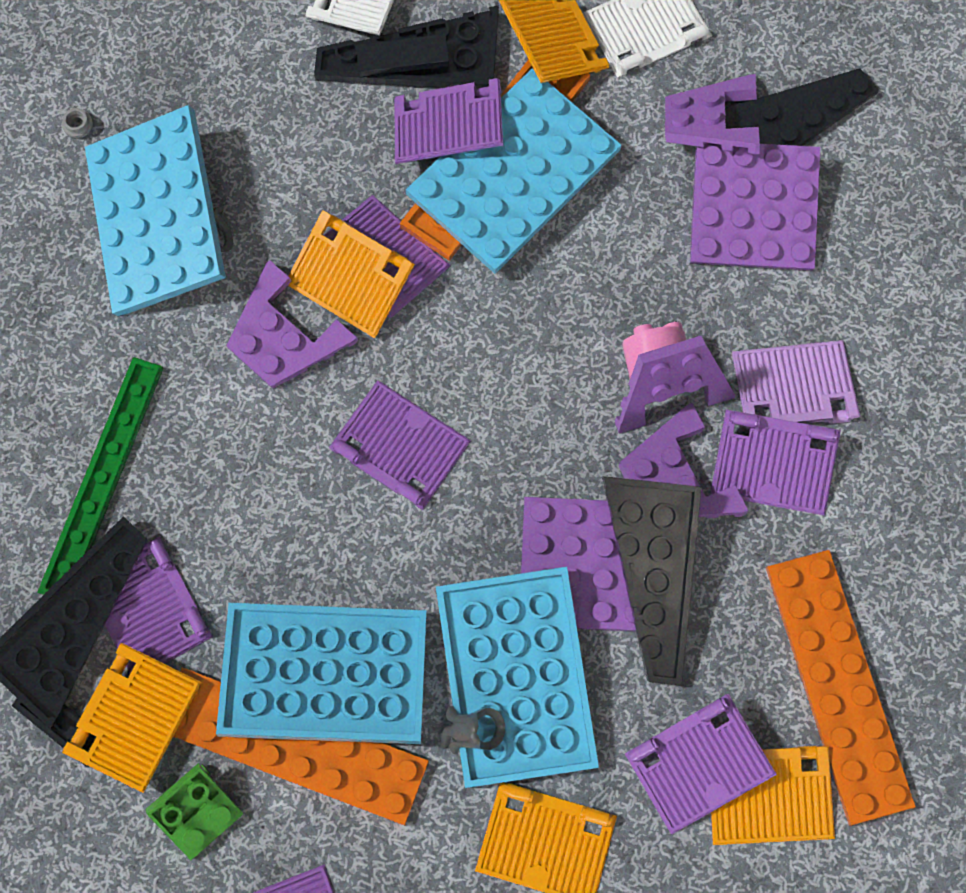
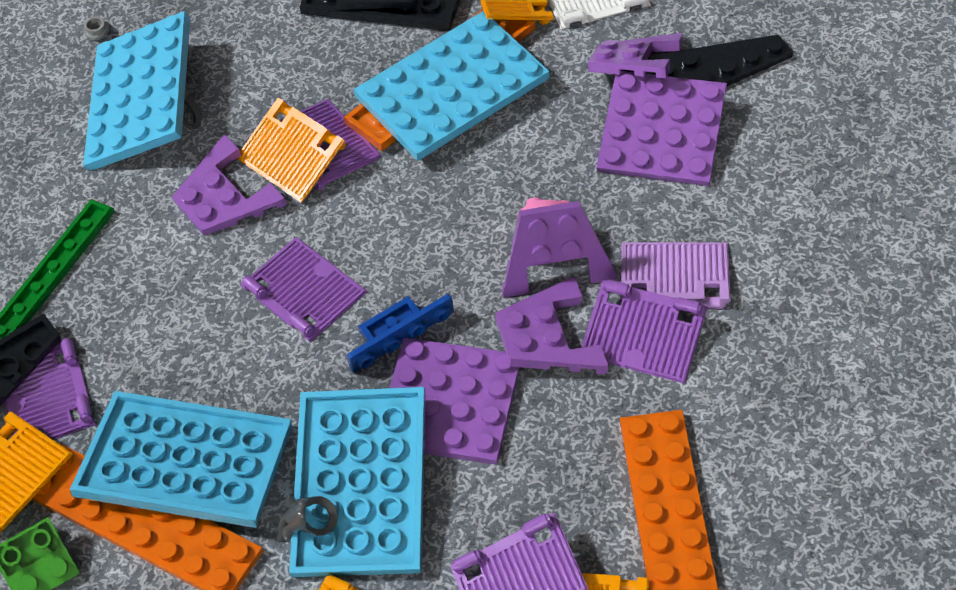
camera: 15 degrees right, 20 degrees down
(448, 121) = (402, 43): medium lavender window -> none
(511, 484) = (389, 328): none -> blue bracket
(656, 548) = (511, 384): black wing -> none

